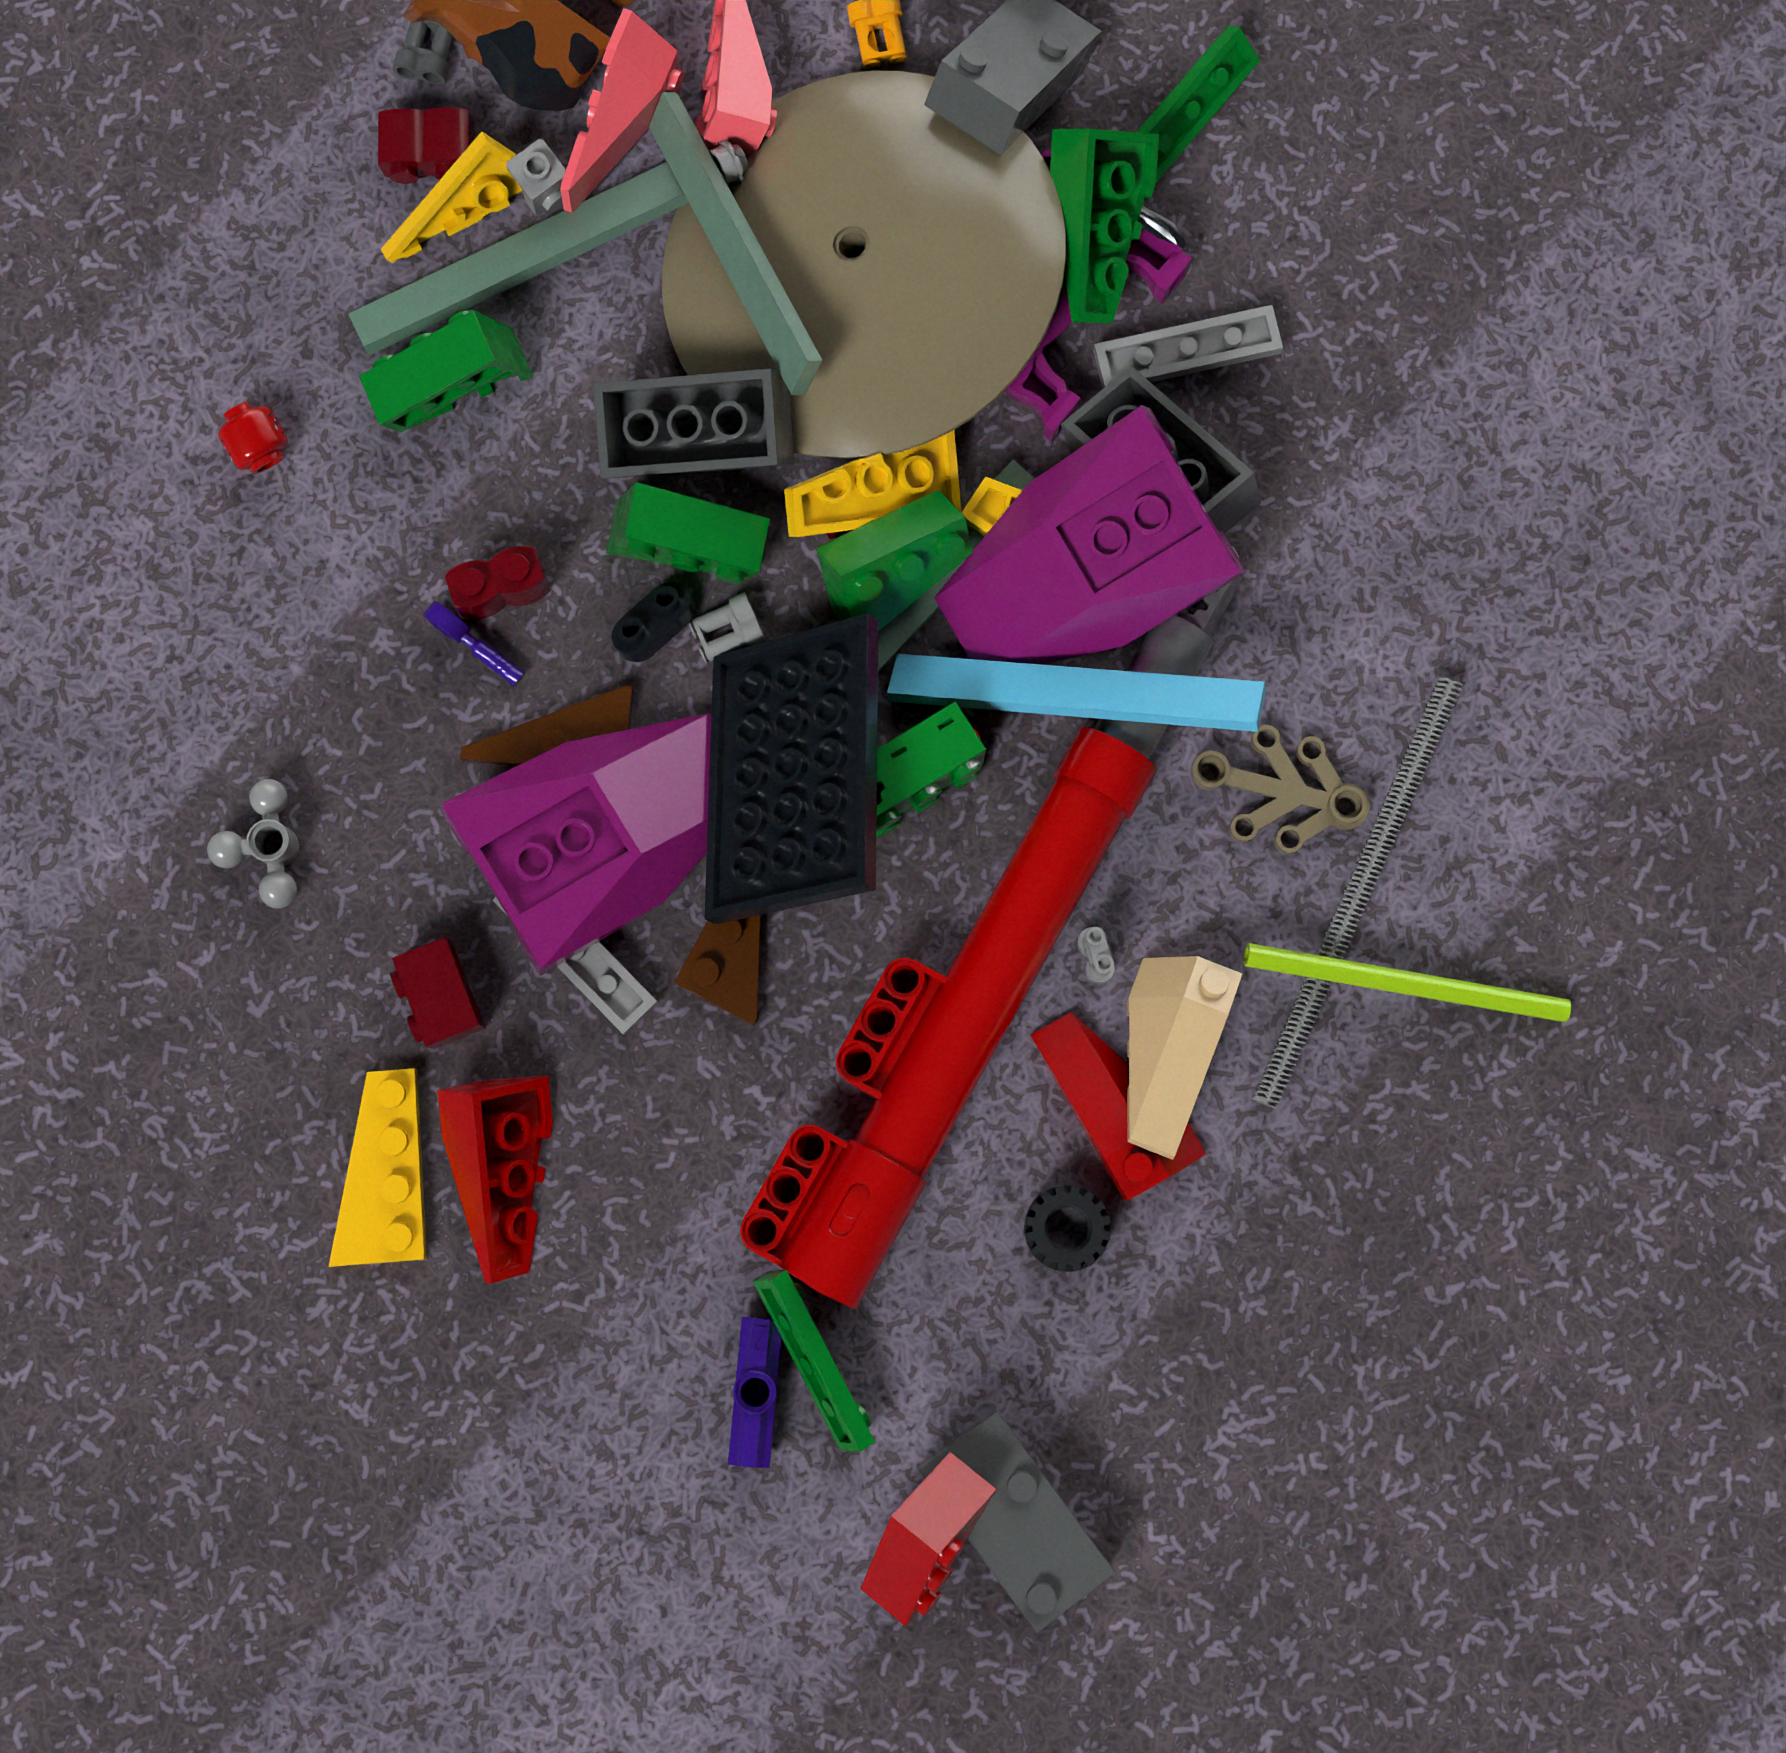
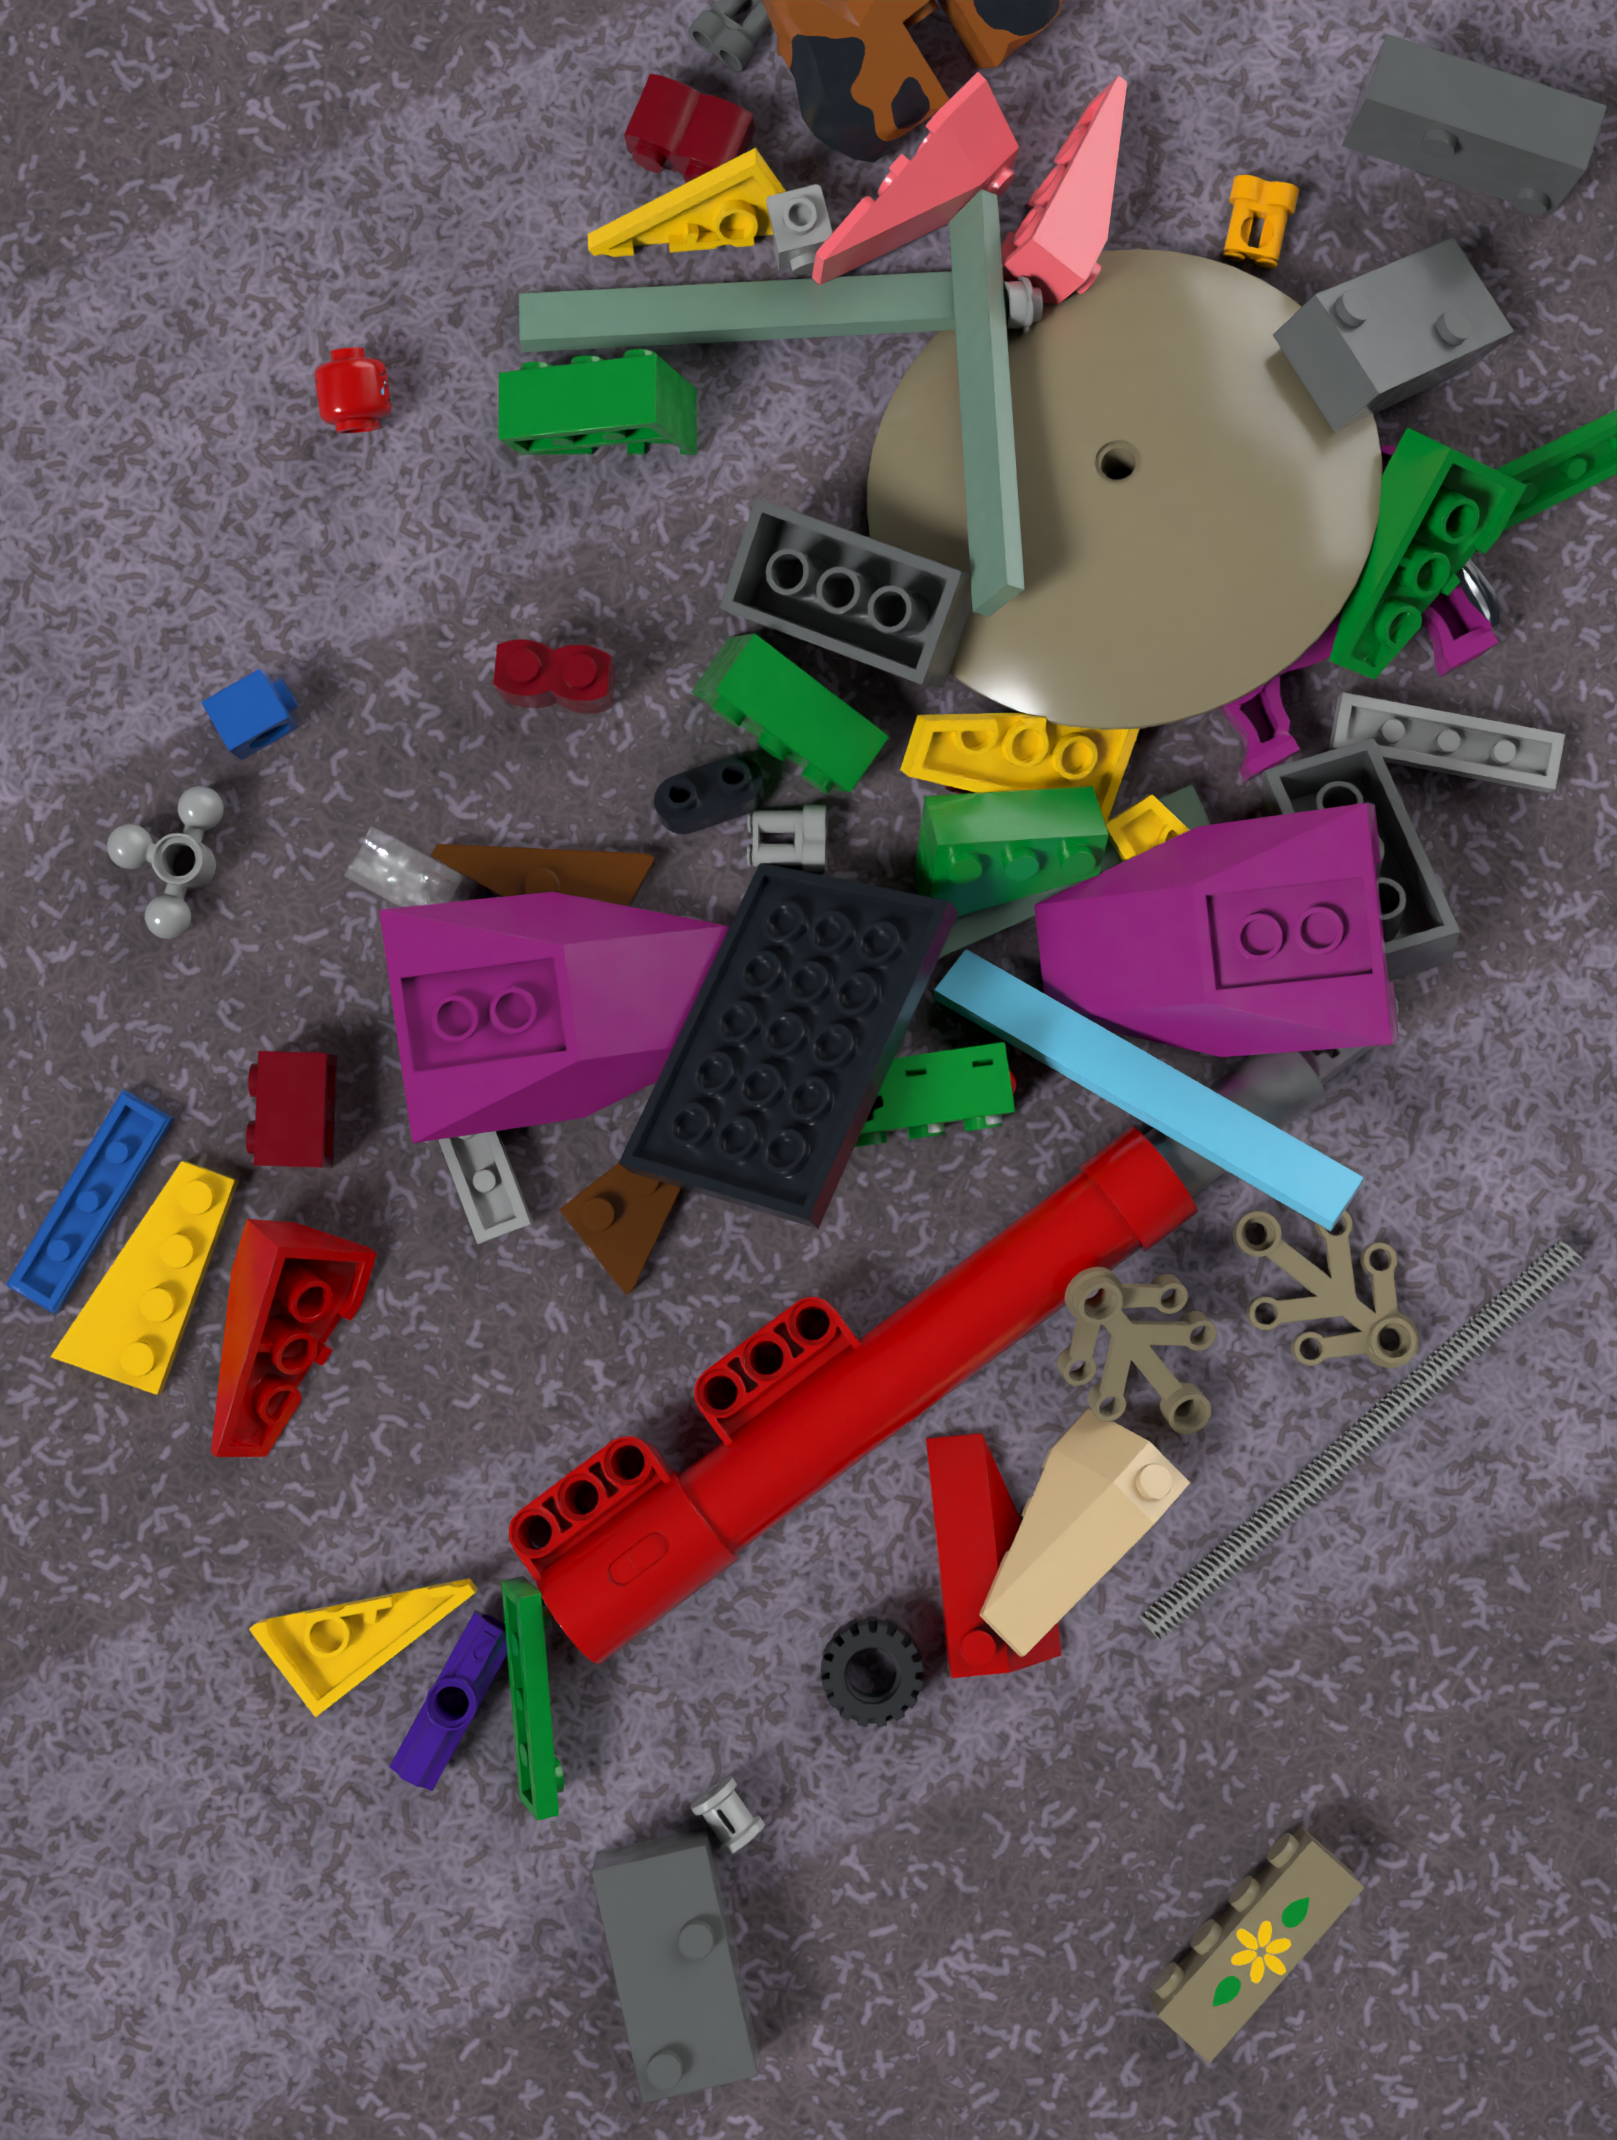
camera: 25 degrees right, 5 degrees up
(278, 708) = (252, 713): none -> blue brick
(308, 1135) = (90, 1202): none -> blue tile
(442, 777) = (401, 872): none -> clear hips
(459, 632) = (504, 740): dark purple piece -> none
(650, 1390) = (340, 1645): none -> yellow wing
(926, 1539) = (565, 1955): red wedge -> none
(1013, 1402) = (727, 1816): none -> light grey bush
(1099, 960) = (1038, 1392): light grey piece -> none
(1151, 888) = (1132, 1342): none -> dark tan plant
(1406, 982) = (1368, 1568): lime piece -> none
(1449, 1304) = (1253, 1942): none -> dark tan brick

